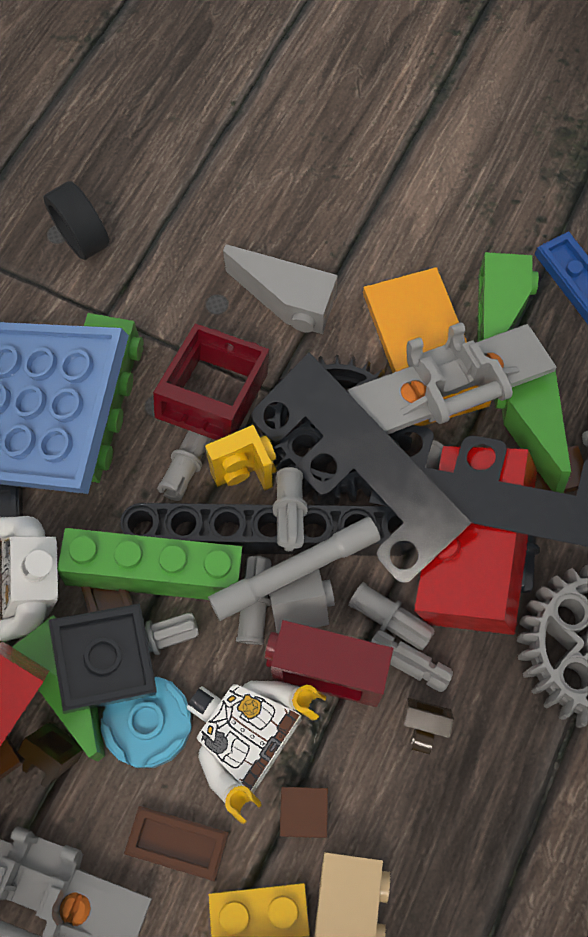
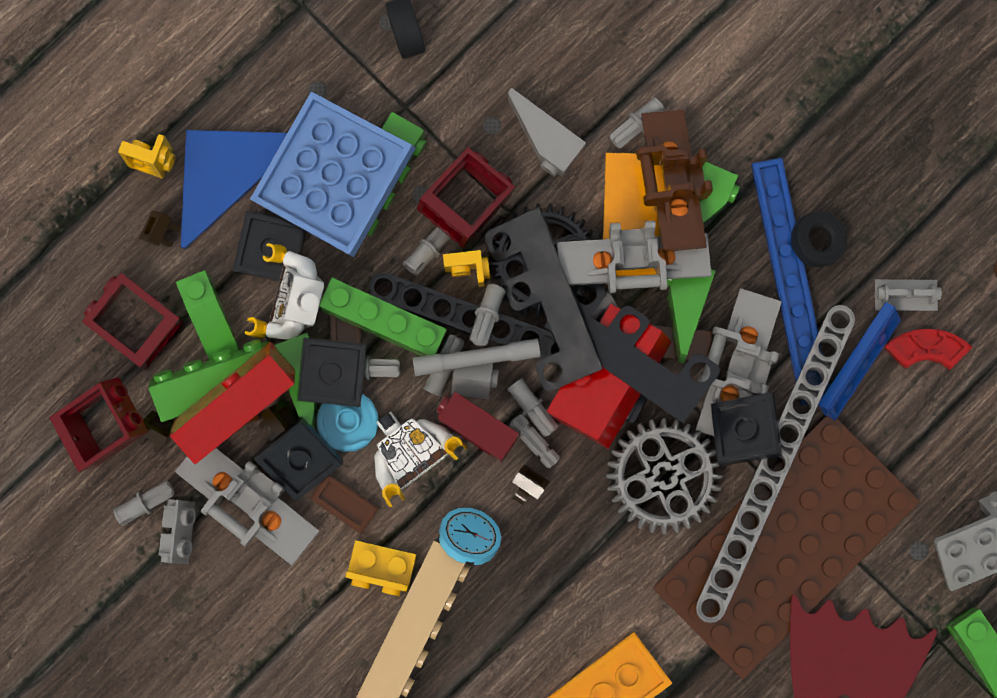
camera: 20 degrees right, 15 degrees up
(89, 799) = (298, 459): none -> black tile
(303, 812) = (430, 512): reddish brown tile -> none
(372, 828) = (469, 536): none -> medium azure tile
(387, 245) = (633, 124): none -> light grey axle
(474, 286) = (683, 177): none -> reddish brown piece

